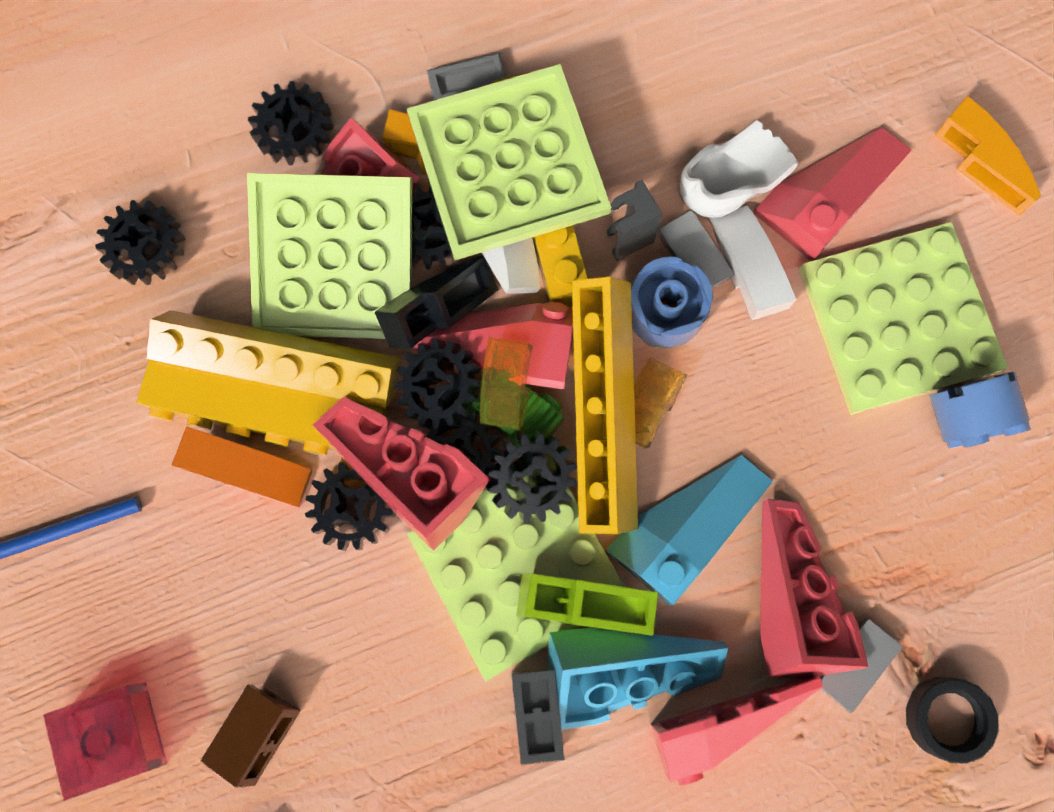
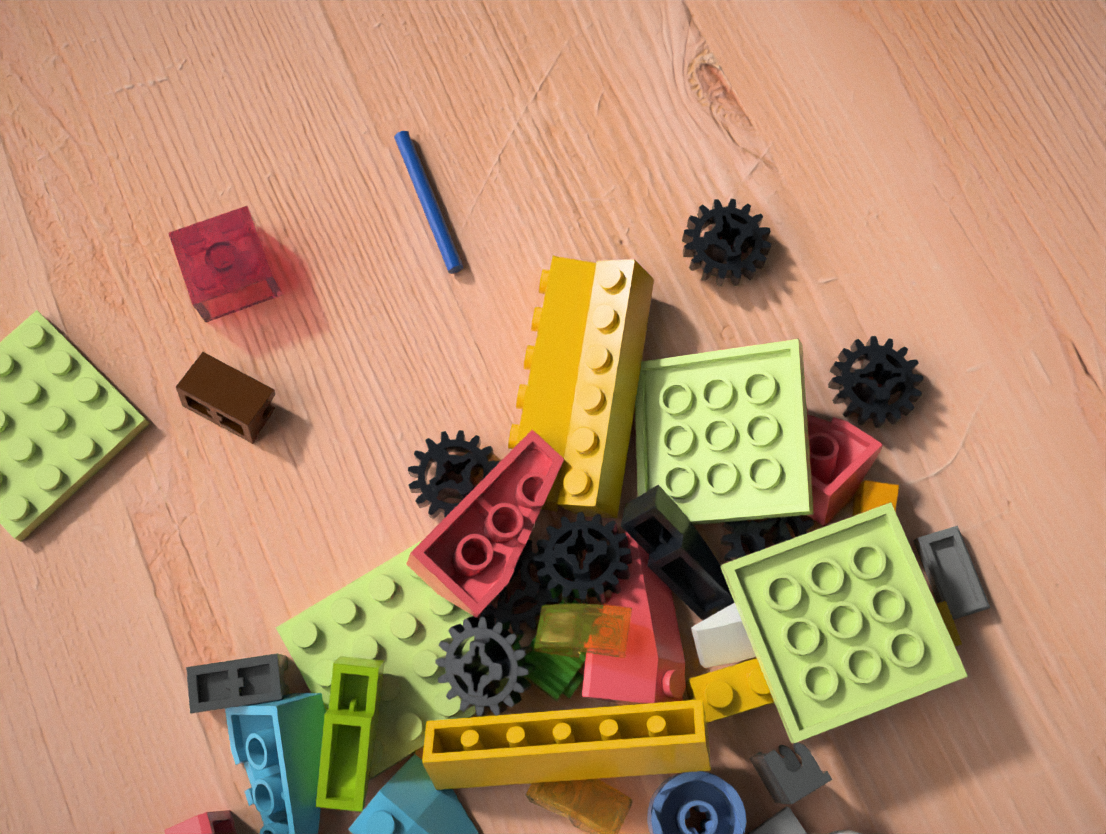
camera: 80 degrees right, 5 degrees down
(242, 467) = (492, 365): orange slope -> none

